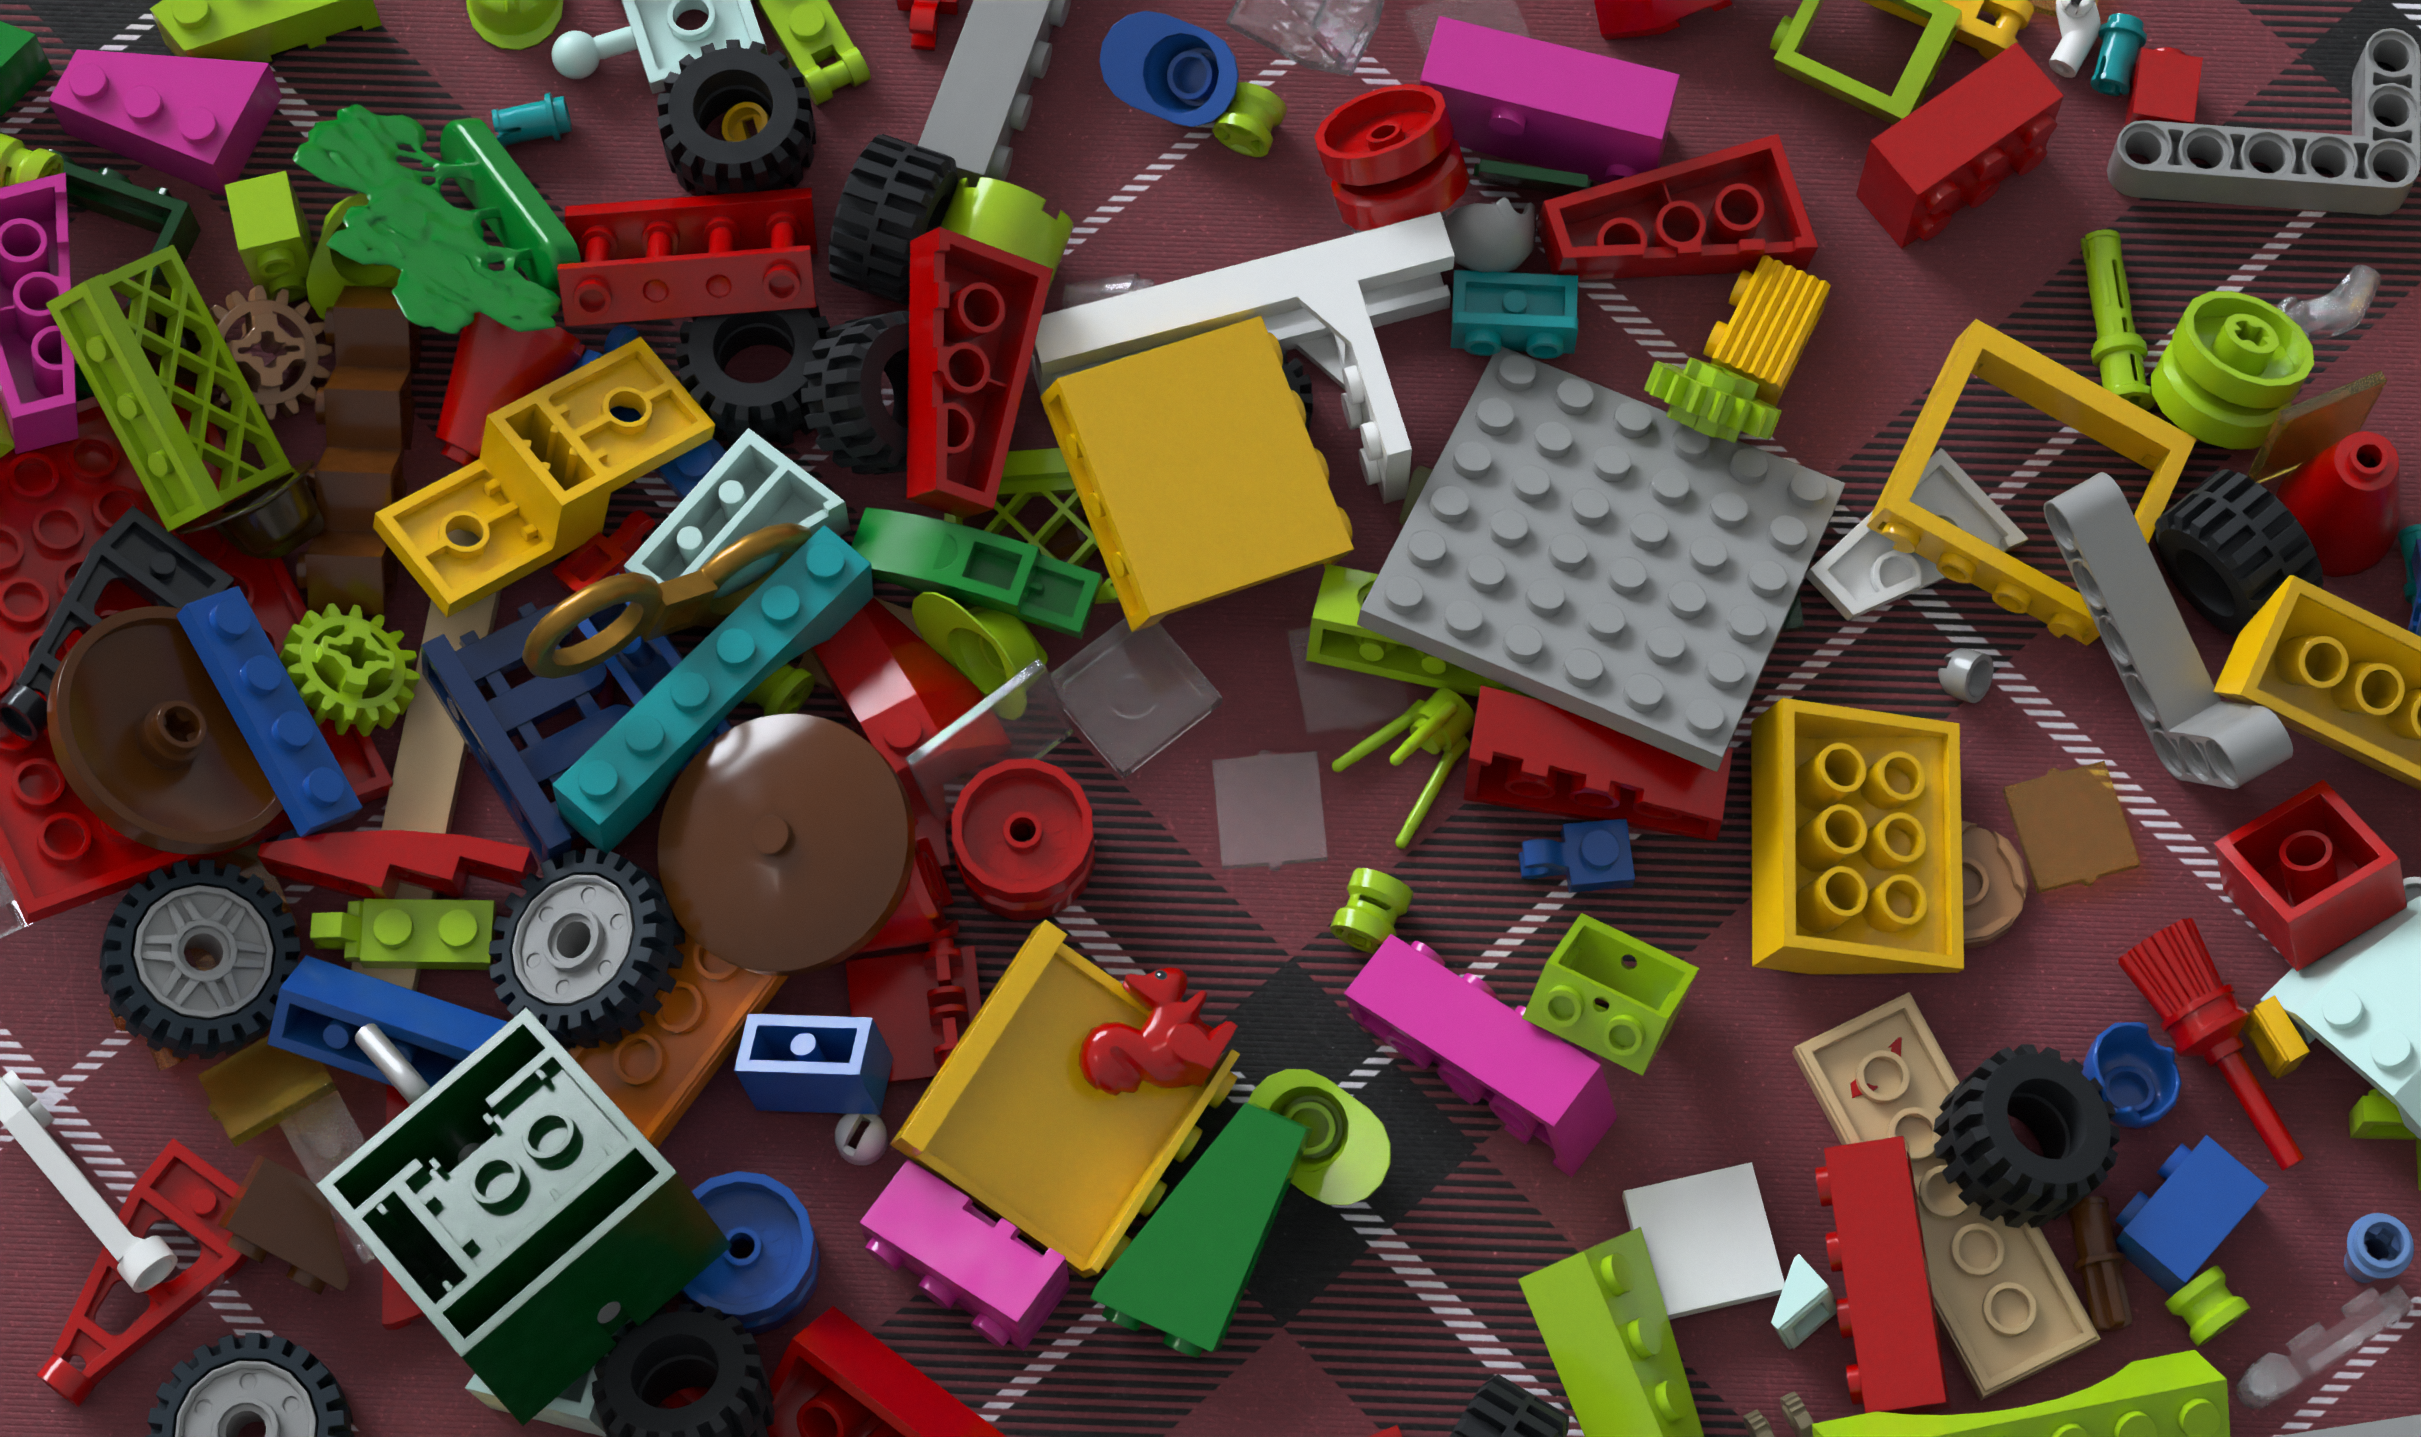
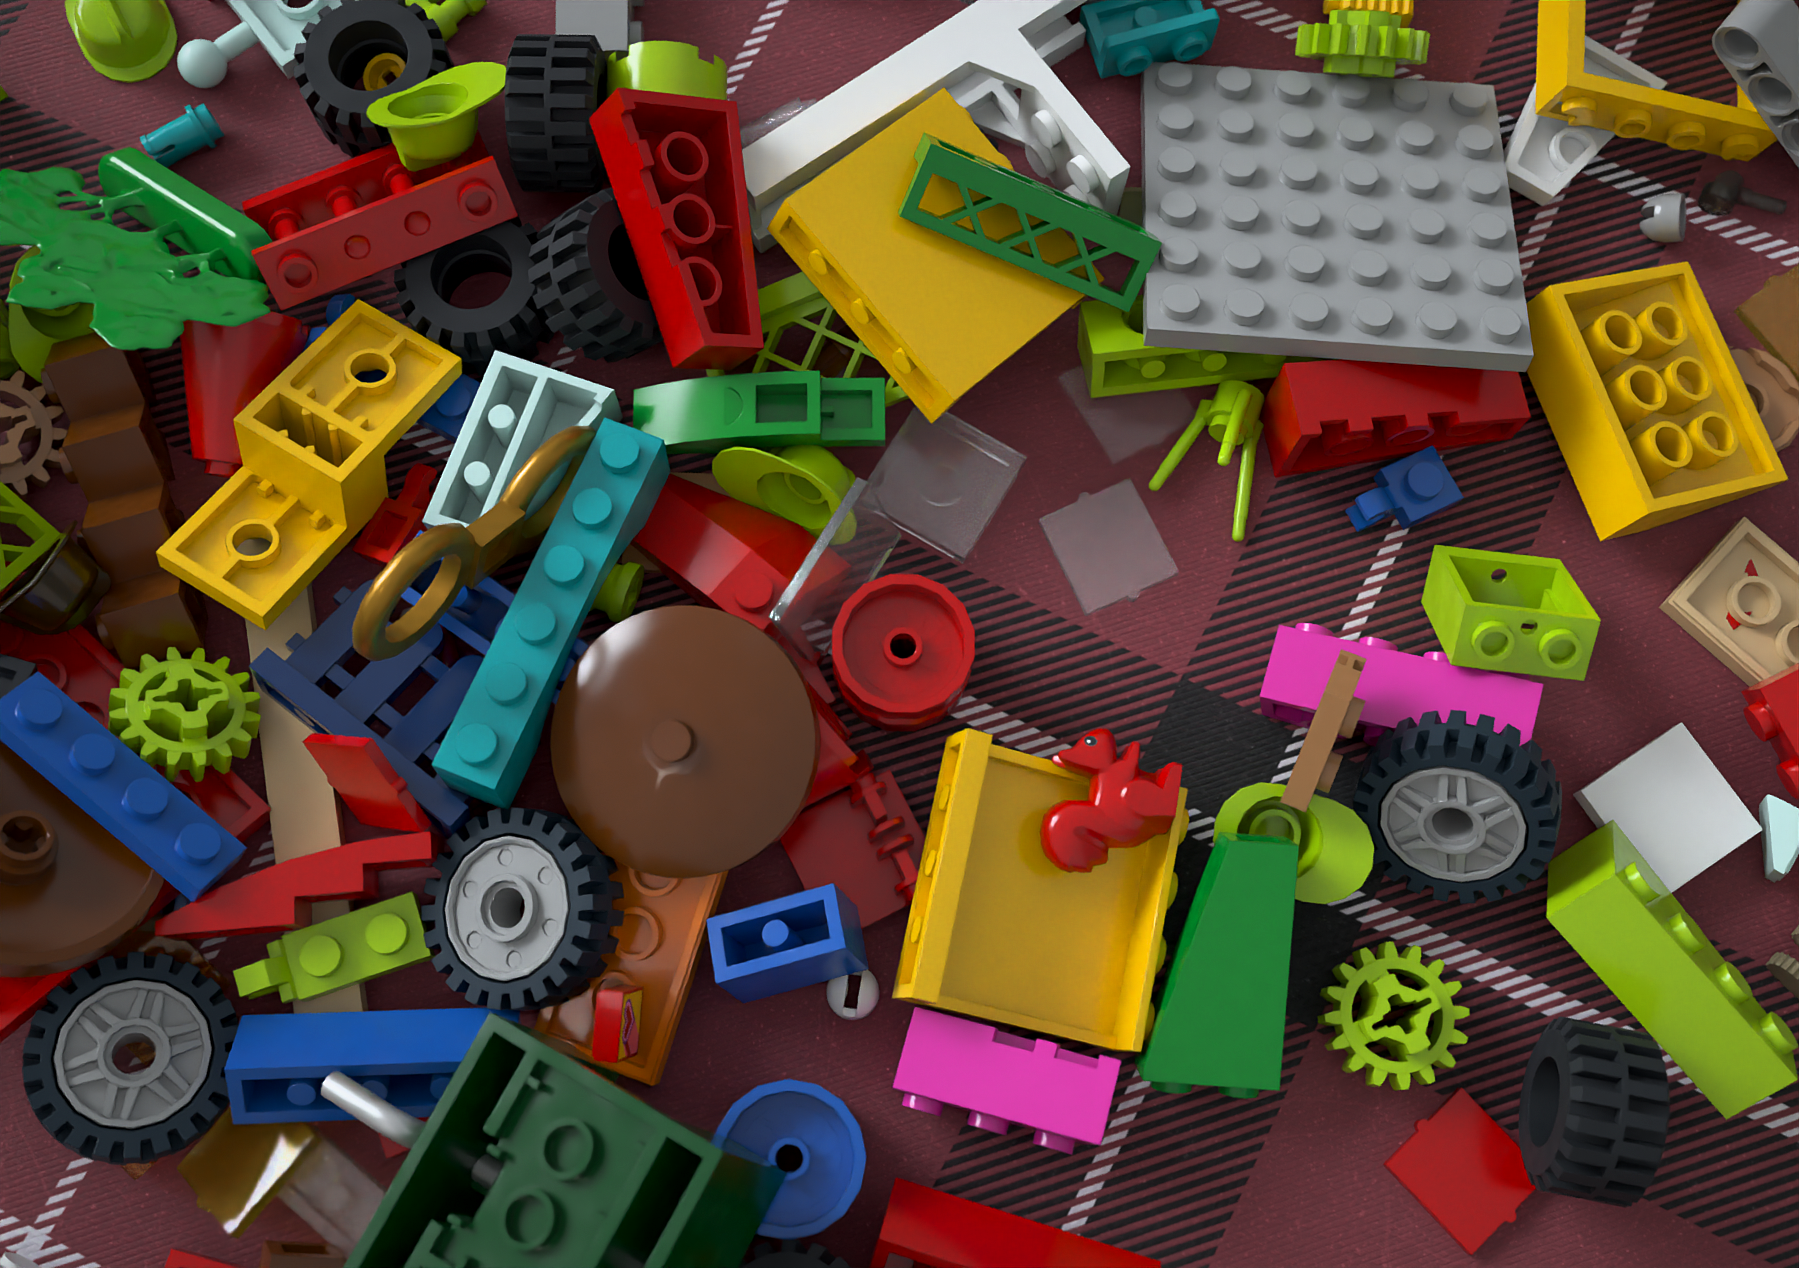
camera: 25 degrees left, 5 degrees up
(488, 786) = (367, 782): none -> red piece
(634, 1075) = (617, 1023): none -> red tile
(778, 185) = (438, 115): none -> lime piece
(1303, 452) = (1038, 200): none -> green fence
(1371, 909) = (1244, 608): lime wheel -> none
(1376, 1036) = (1335, 715): none -> medium nougat plate
(1380, 1328) = (1408, 1037): none -> lime gear
(1480, 1153) = (1459, 806): none -> wheel
(2042, 666) = (1722, 194): none -> clear smoke hand

